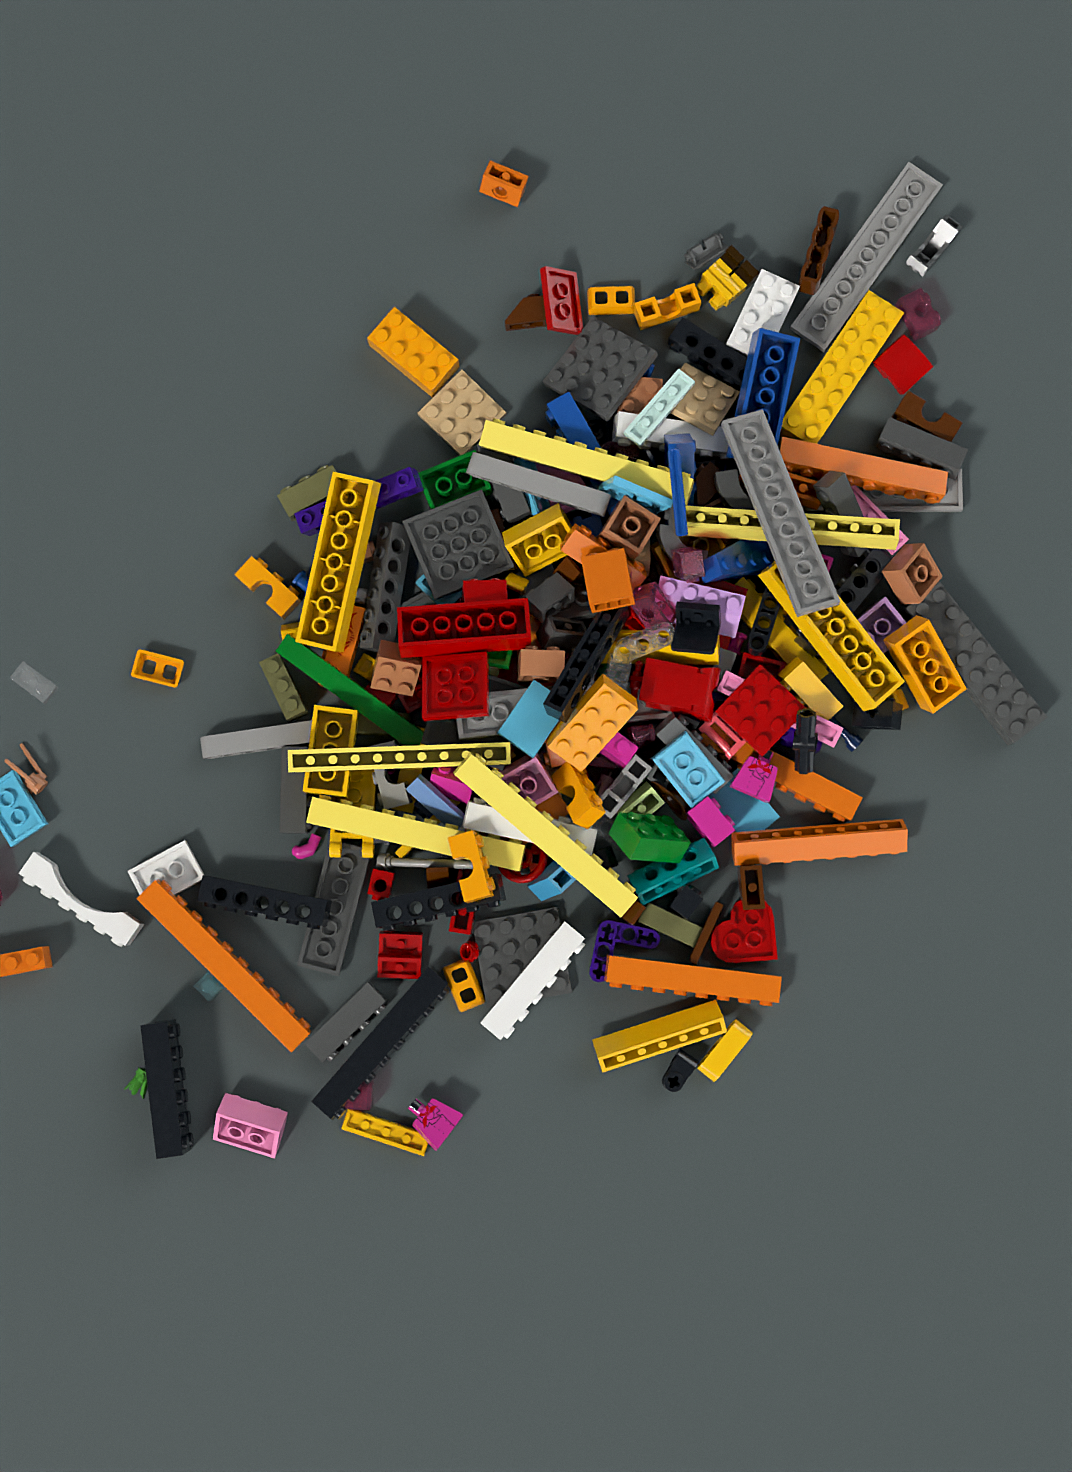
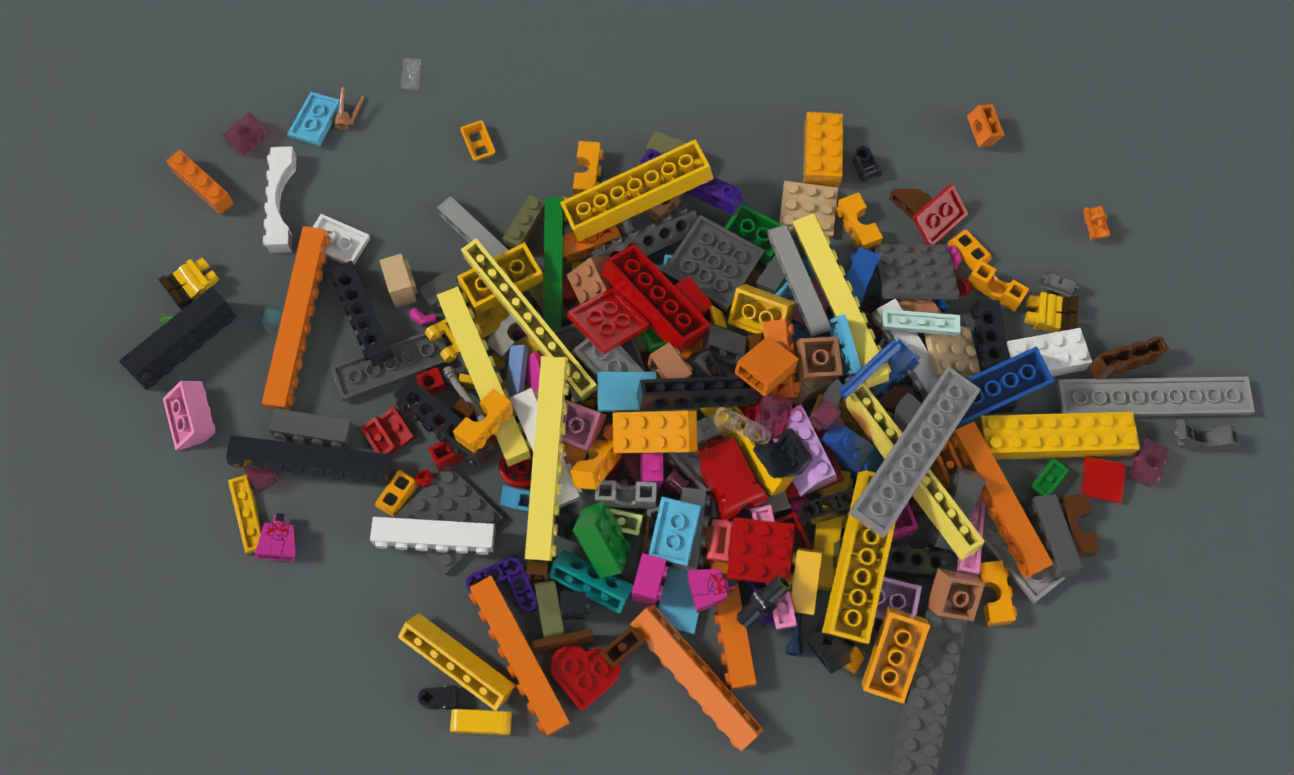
camera: 50 degrees right, 15 degrees down
(110, 1042) = (188, 282): none -> yellow hips
(258, 846) = (399, 280): none -> tan brick
(459, 326) = (866, 167): none -> black piece
(527, 386) = (862, 235): none -> light orange arch
(609, 319) = (955, 257): none -> dark pink arm
(647, 340) = (967, 287): none -> red plate
(673, 166) = (1096, 223): none -> orange hips
(869, 409) = (1049, 478): none -> green plate
(948, 543) = (1001, 611): none -> light orange arch

